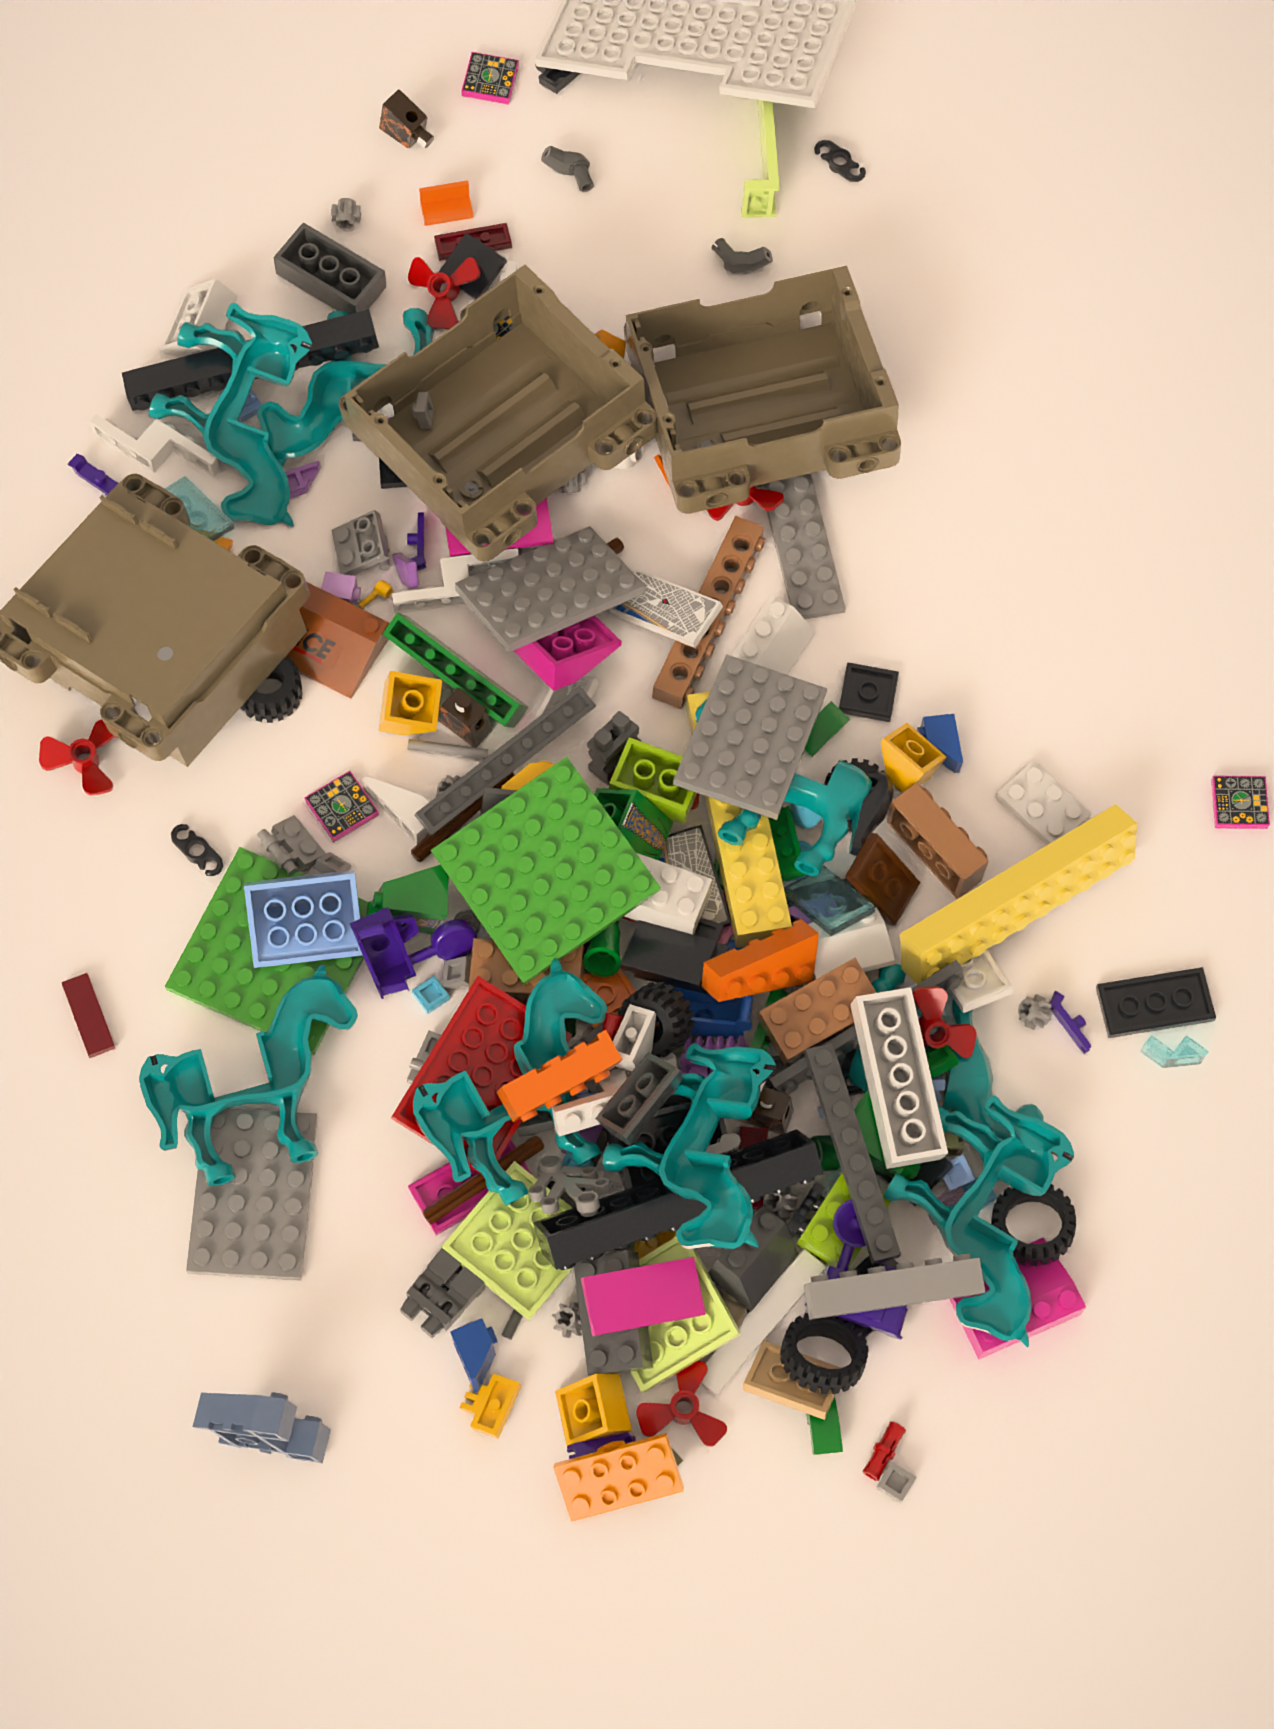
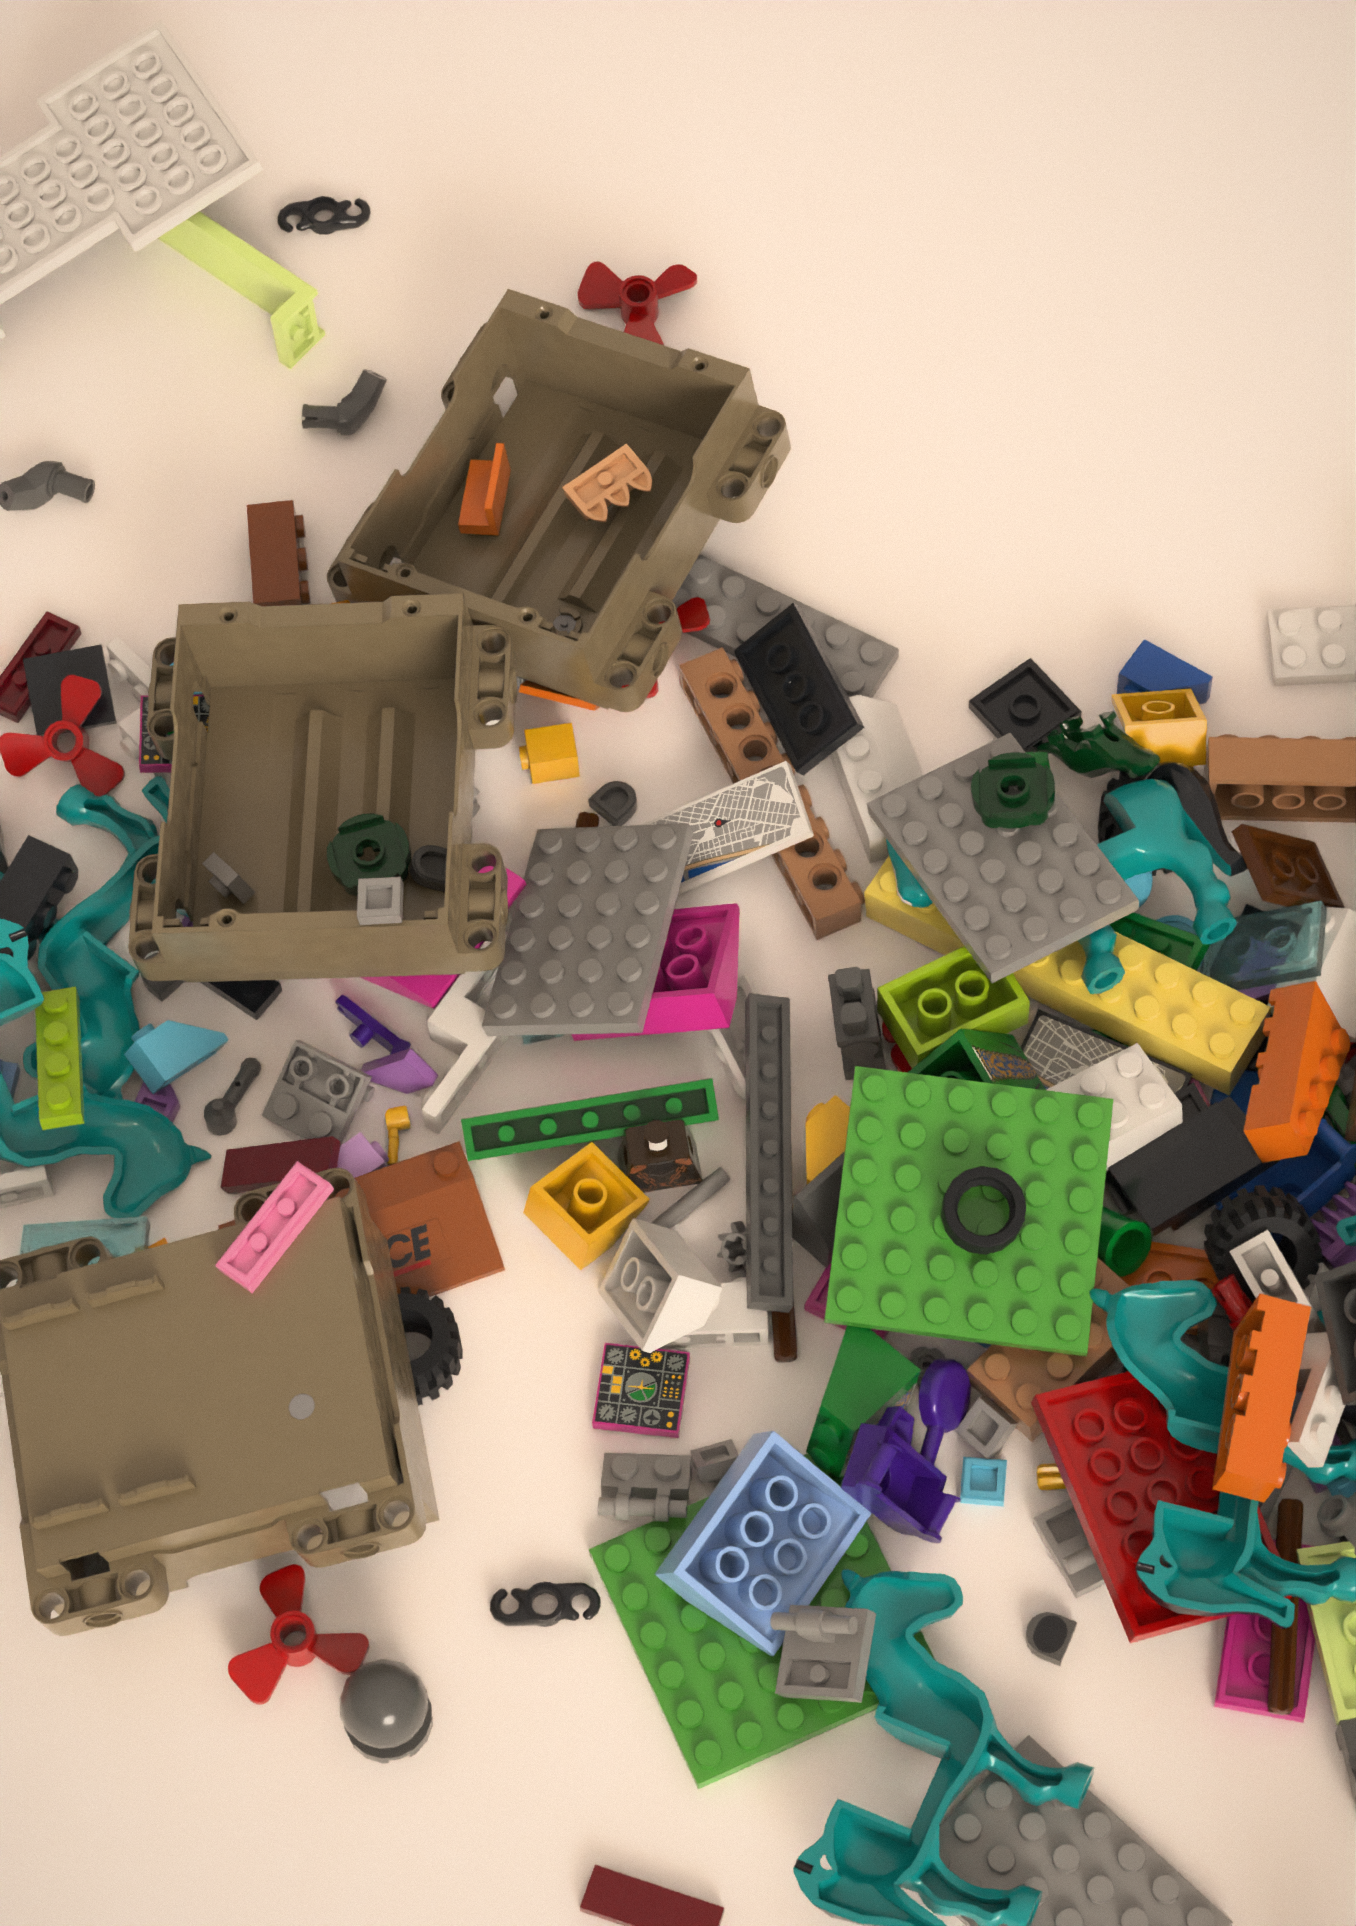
camera: 40 degrees left, 5 degrees down
(81, 822) = (386, 1711): none -> dark grey tile
(242, 568) = (274, 1227): none -> bright pink tile
(269, 985) = (824, 1652): none -> light grey plate
(270, 417) = (59, 1059): none -> lime plate
(309, 557) = (268, 1164): none -> dark red tile
(317, 512) = (220, 1112): none -> dark grey piece
(323, 463) = (171, 1051): none -> medium azure slope
(377, 1085) = (1050, 1636): none -> tile
(393, 768) = (658, 1286): none -> white slope
(444, 475) = (380, 900): none -> light grey plate
(492, 471) = (365, 832): none -> dark green plate
(536, 853) = (987, 1177): none -> black tyre
(626, 296) = (277, 554): none -> dark orange brick
(637, 499) = (550, 753): none -> yellow brick
(640, 549) = (614, 802): none -> dark grey tile
(744, 354) = (485, 494): none -> orange panel
(771, 578) = (798, 689): none -> black tile
(786, 725) = (1017, 810): none -> dark green plate
(795, 401) = (608, 484): none -> light nougat plate
(866, 739) = (1099, 749): none -> dark green animal
(918, 316) = (634, 296): none -> red piece

